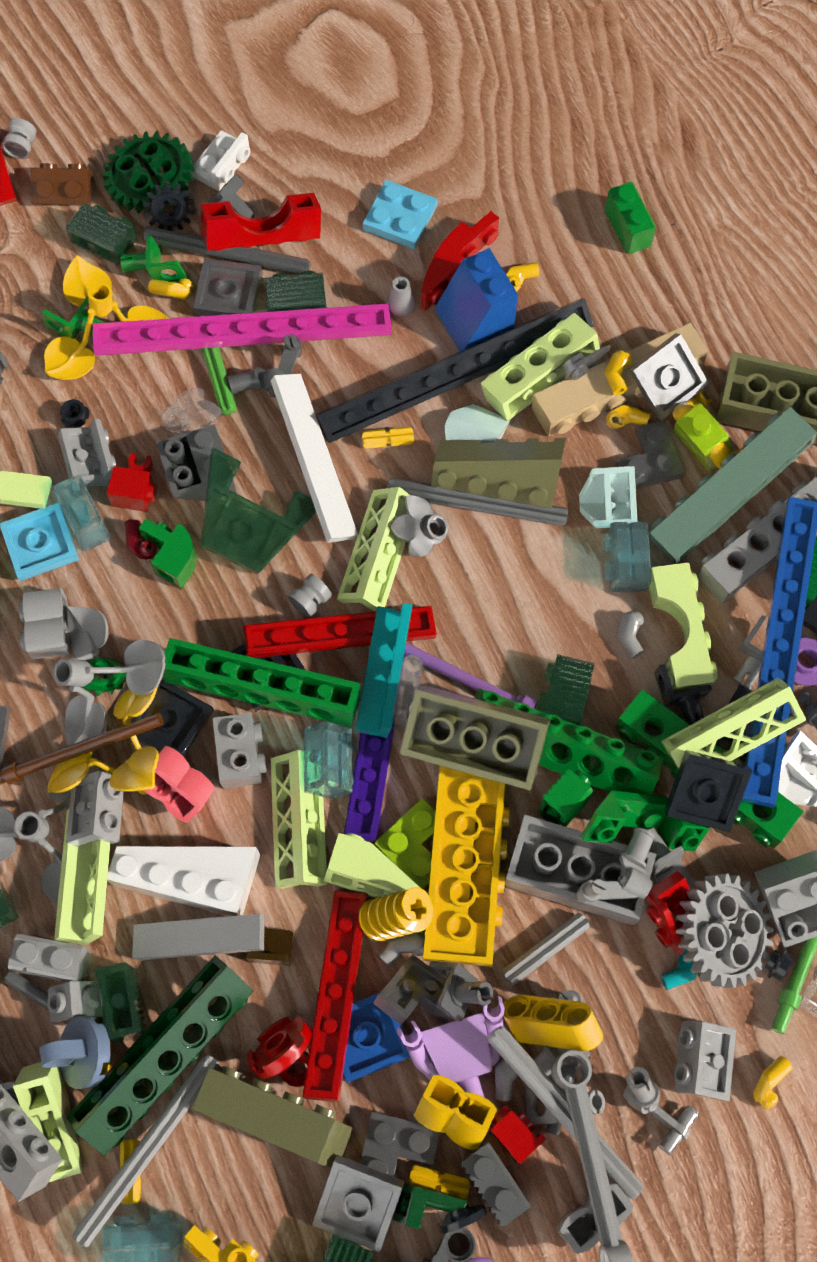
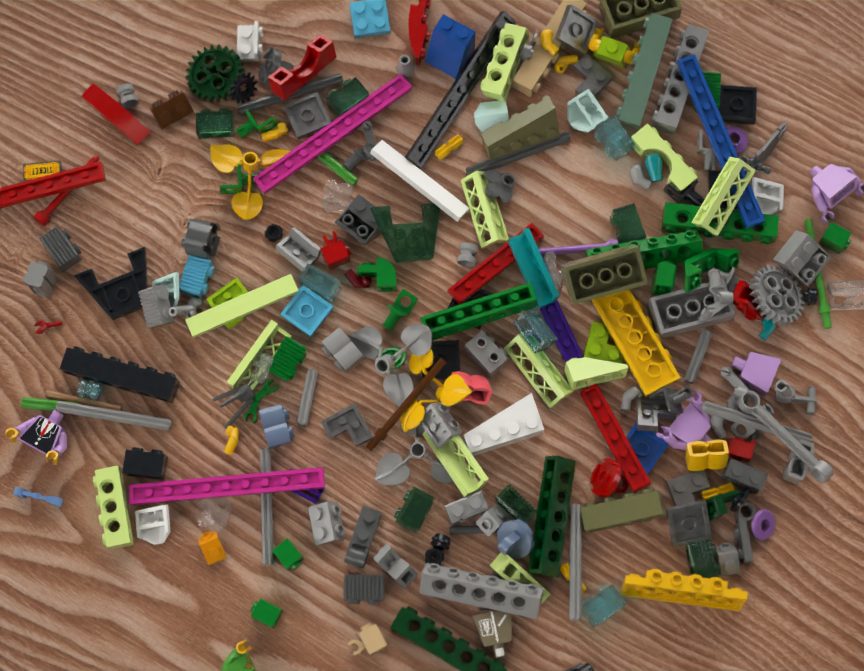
camera: 30 degrees left, 5 degrees up
(162, 615) = (398, 310): none -> green bracket
(198, 937) = (531, 453): light grey tile -> none
(276, 948) = (566, 437): dark brown panel -> none
(396, 914) = (619, 383): yellow piece -> none
(519, 273) = (458, 13): yellow arm -> none
(552, 1022) = (726, 386): yellow beam -> none
(625, 1028) = (757, 371): none -> lavender torso
(661, 631) = (654, 167): none -> teal cone
(705, 1060) = (803, 361): light grey bracket -> none
(707, 790) = (729, 233): black plate -> none
(769, 1079) = (837, 352): yellow arm -> none

